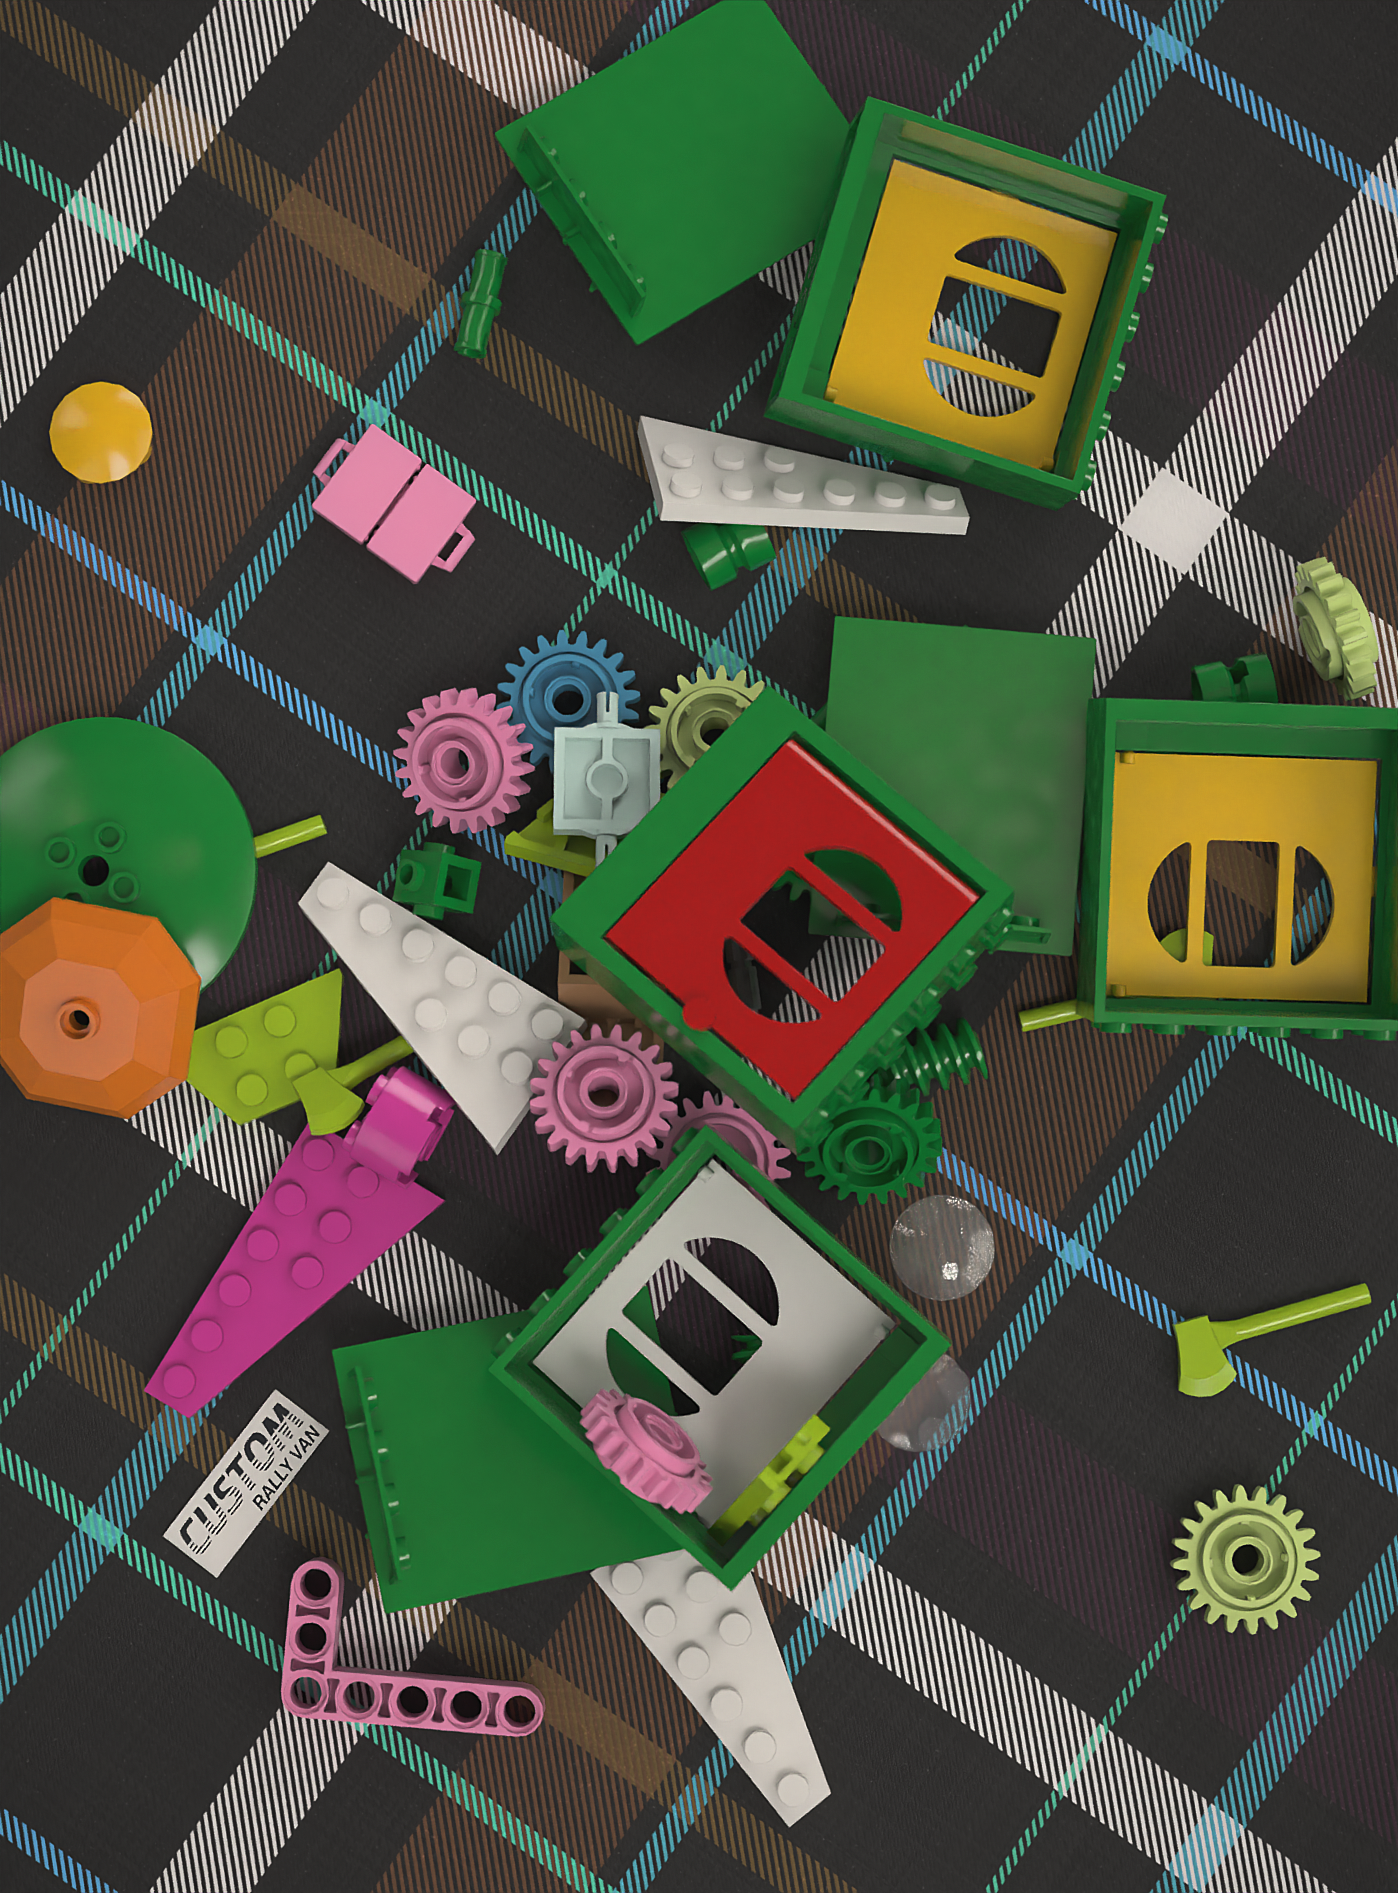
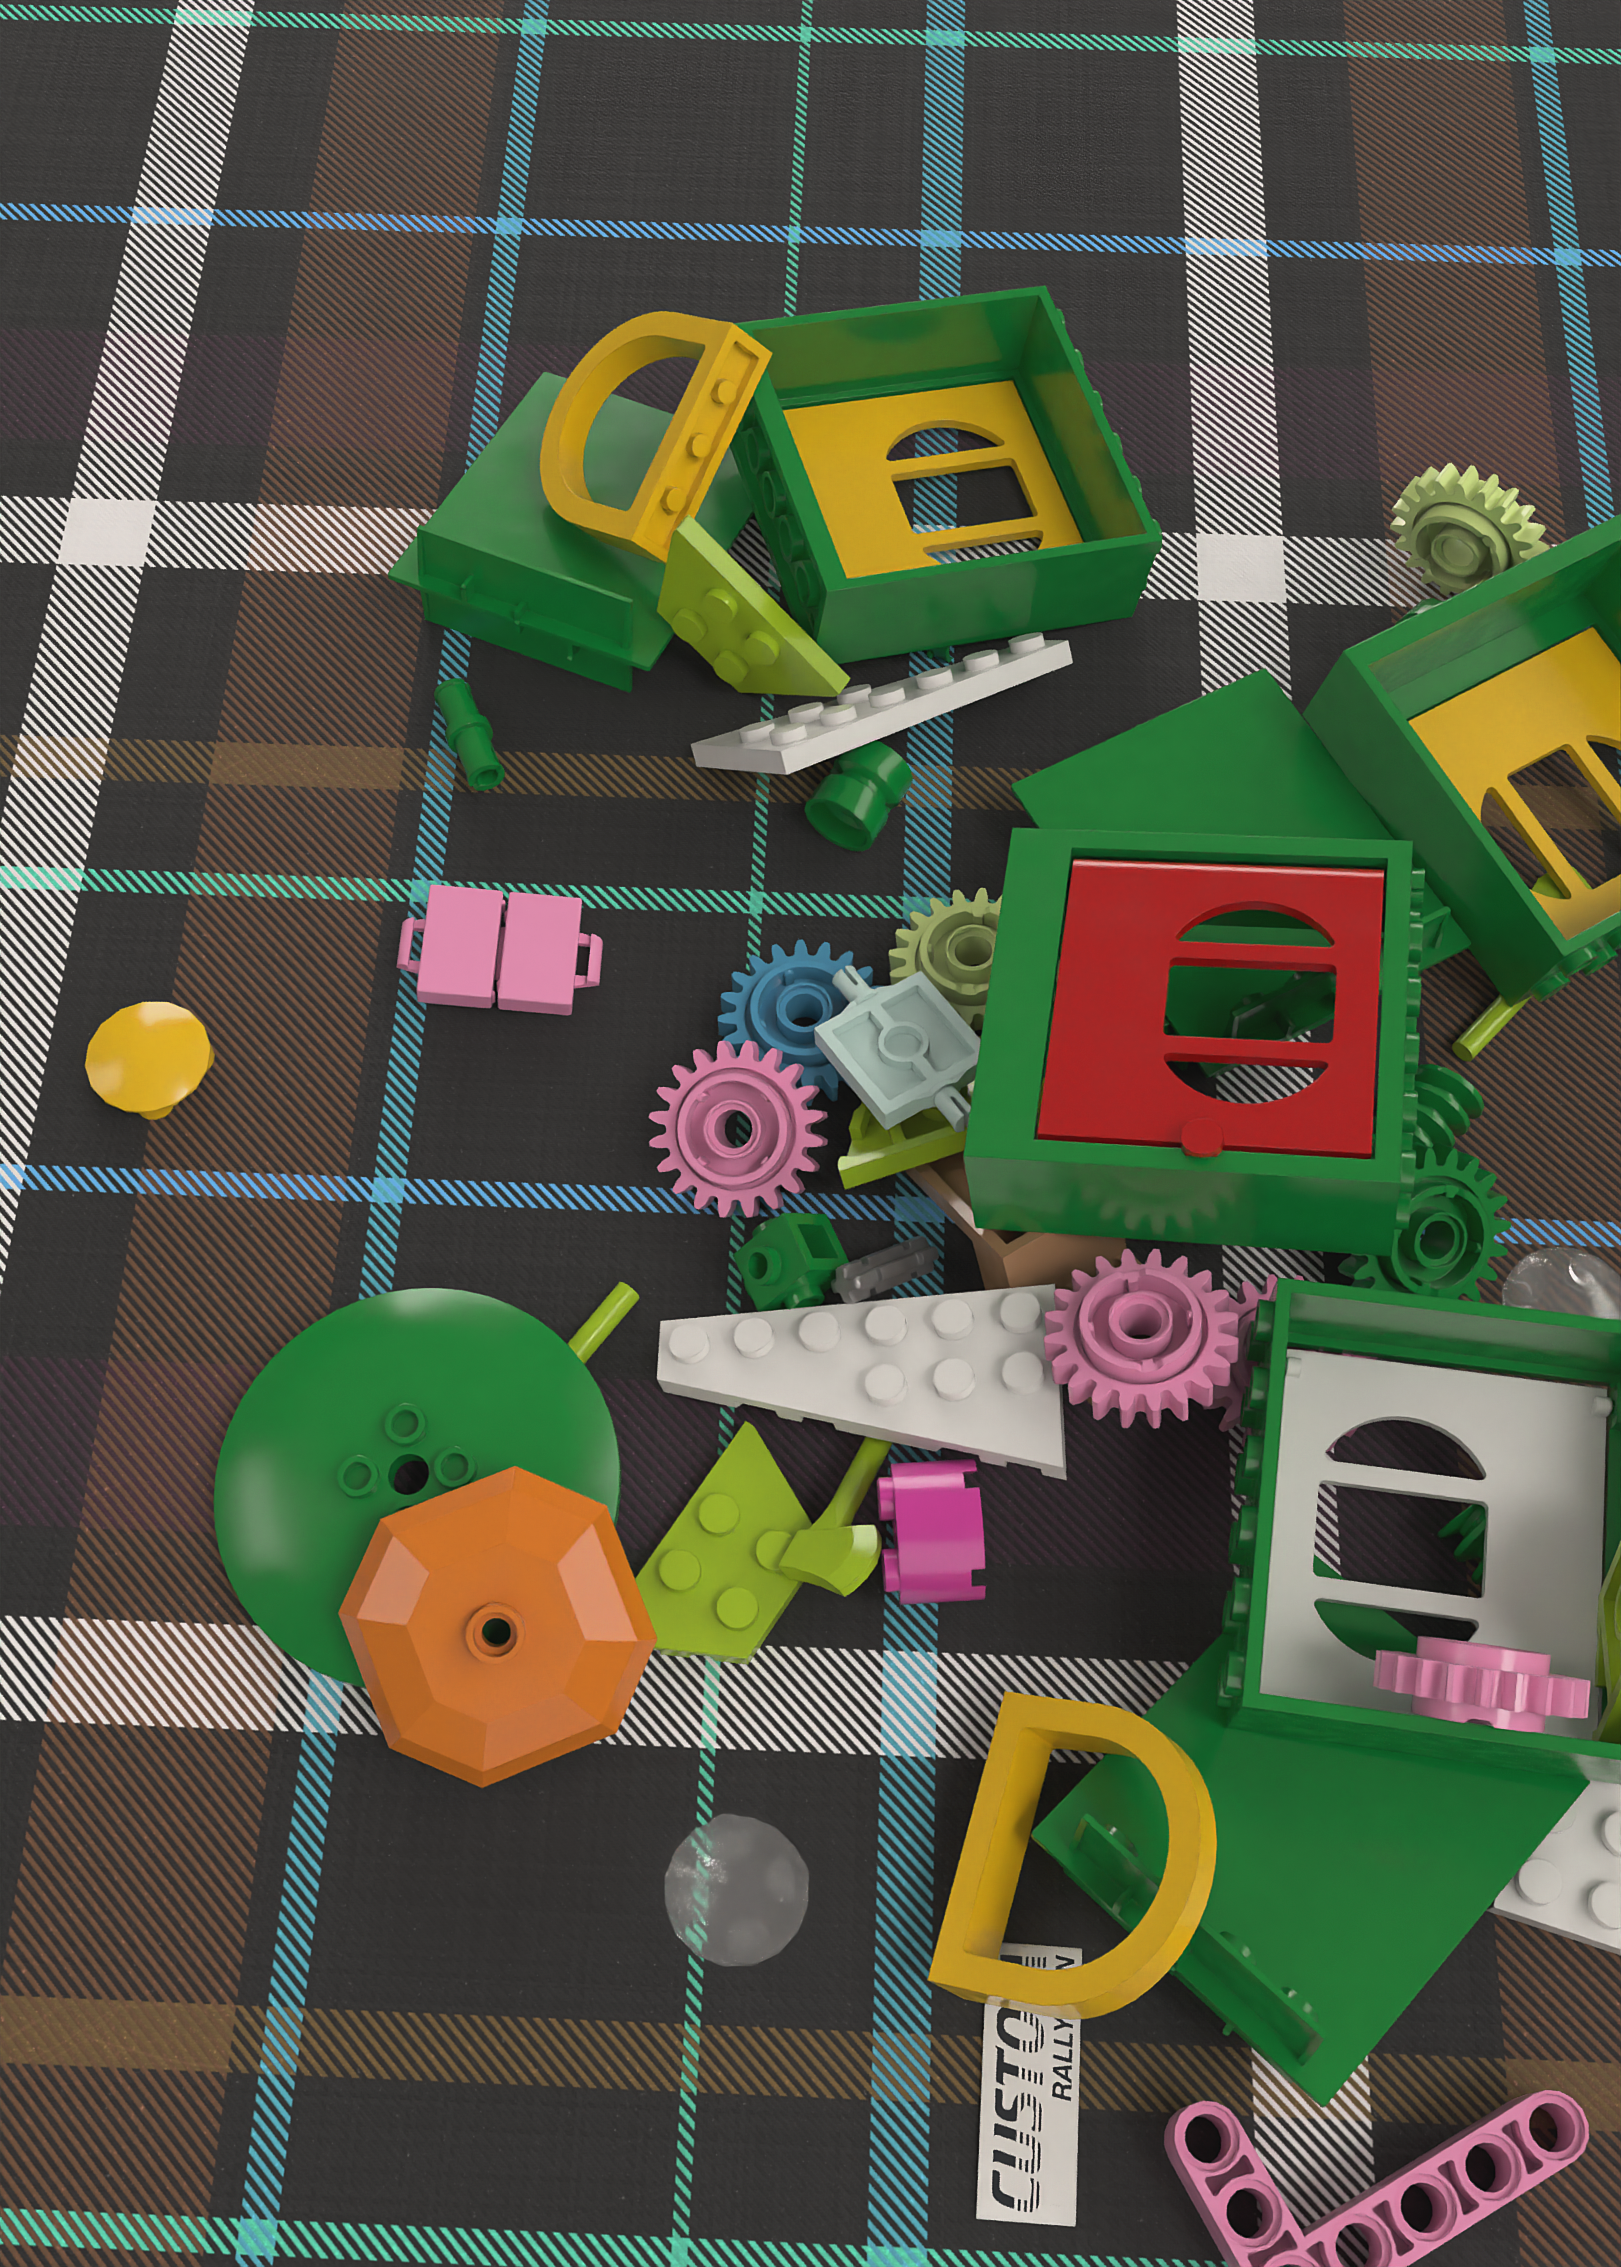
camera: 35 degrees left, 20 degrees down
(141, 1262) = (736, 1891): none -> clear dish
(297, 1251) = (907, 1748): dark pink wing -> none
(308, 1345) = (996, 1845): none -> yellow window
(496, 926) = (884, 1269): none -> flat silver axle
(722, 361) = (737, 623): none -> lime wing
(780, 186) = (692, 445): none -> yellow window

